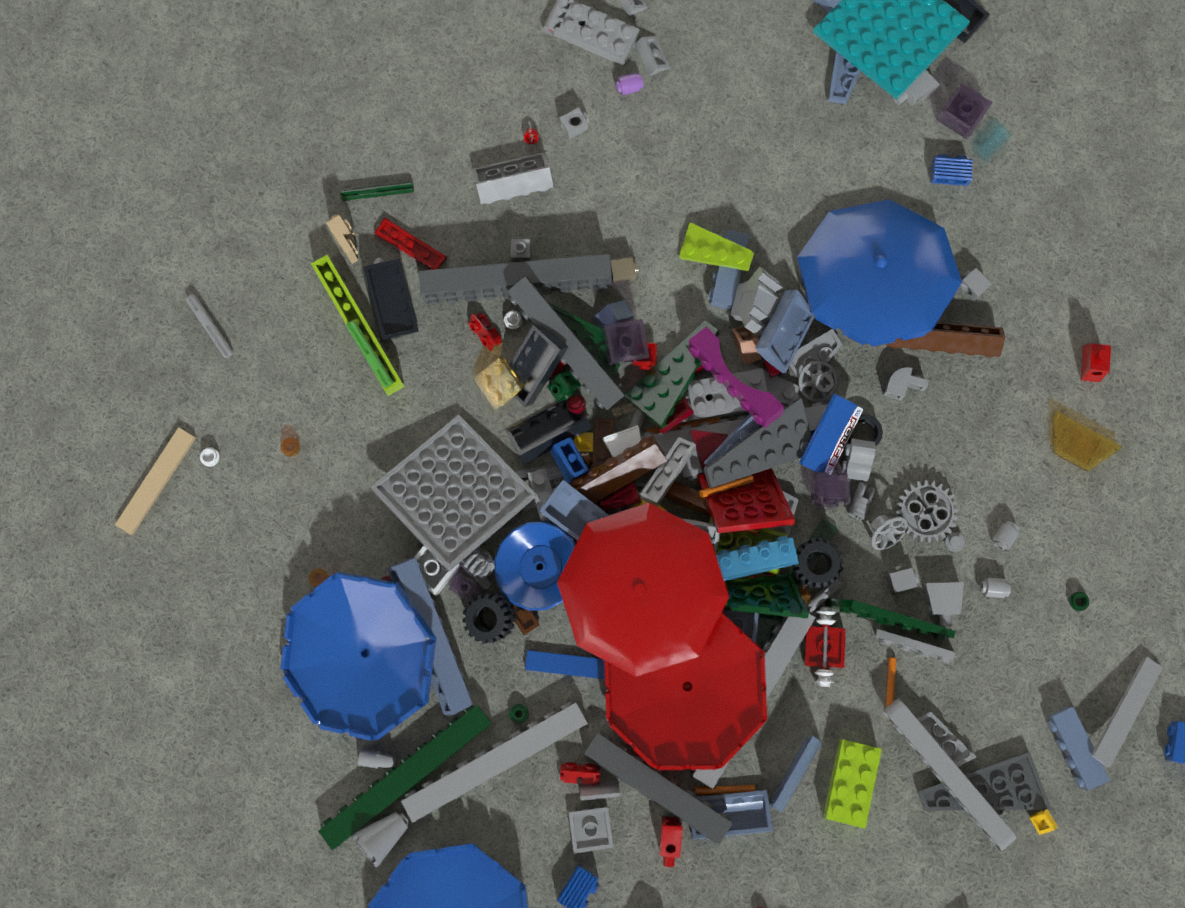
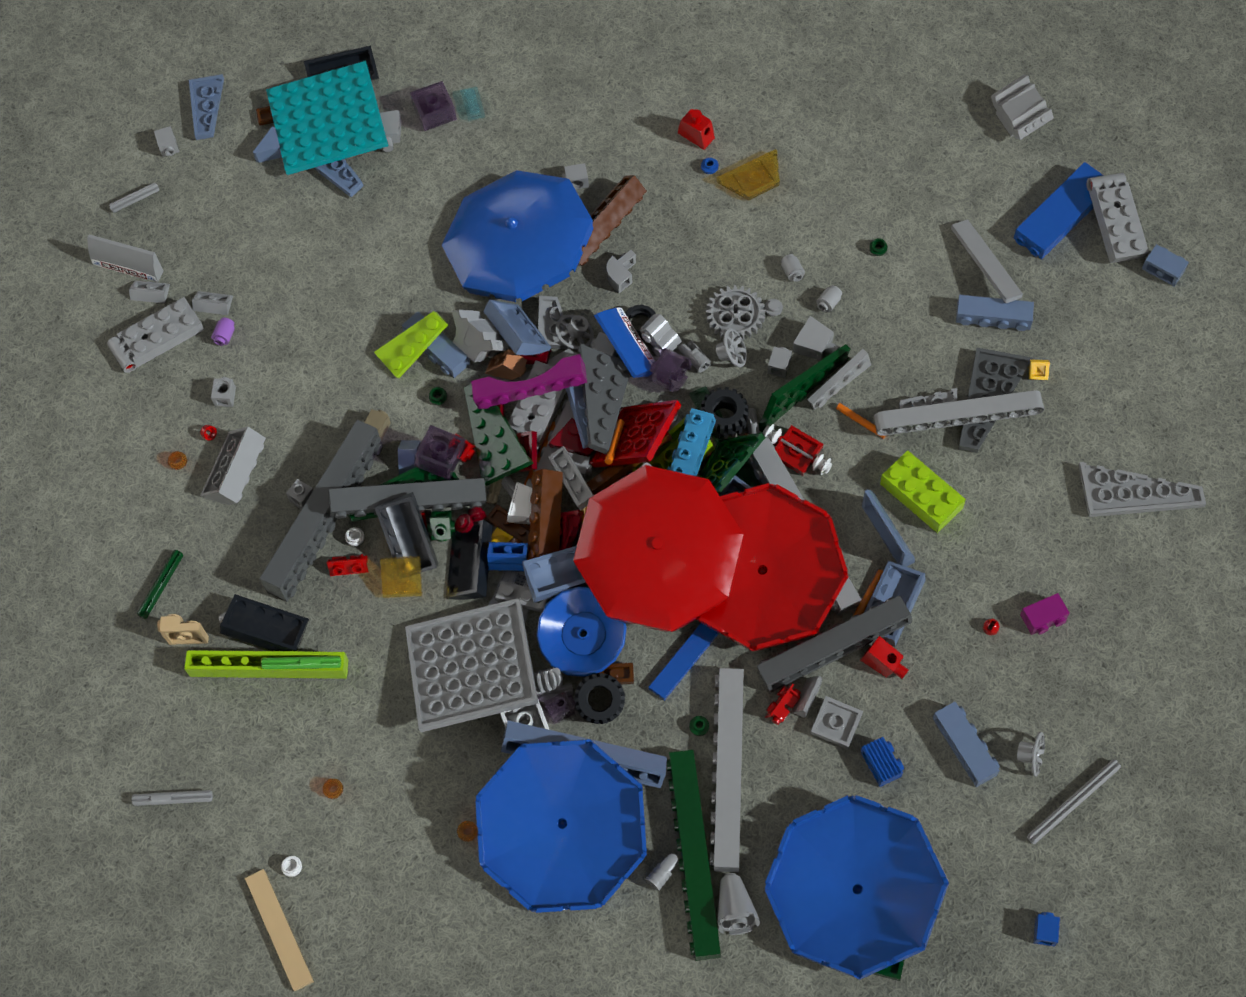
camera: 55 degrees left, 15 degrees down
(410, 245) = (226, 584): red tile -> none
(491, 123) = (173, 457): none -> clear orange plate
(592, 409) = (477, 514): none -> dark red plate
(683, 297) = (438, 391): none -> dark green plate
(951, 170) = (473, 142): blue brick -> none
(1060, 396) = (709, 169): none -> blue plate

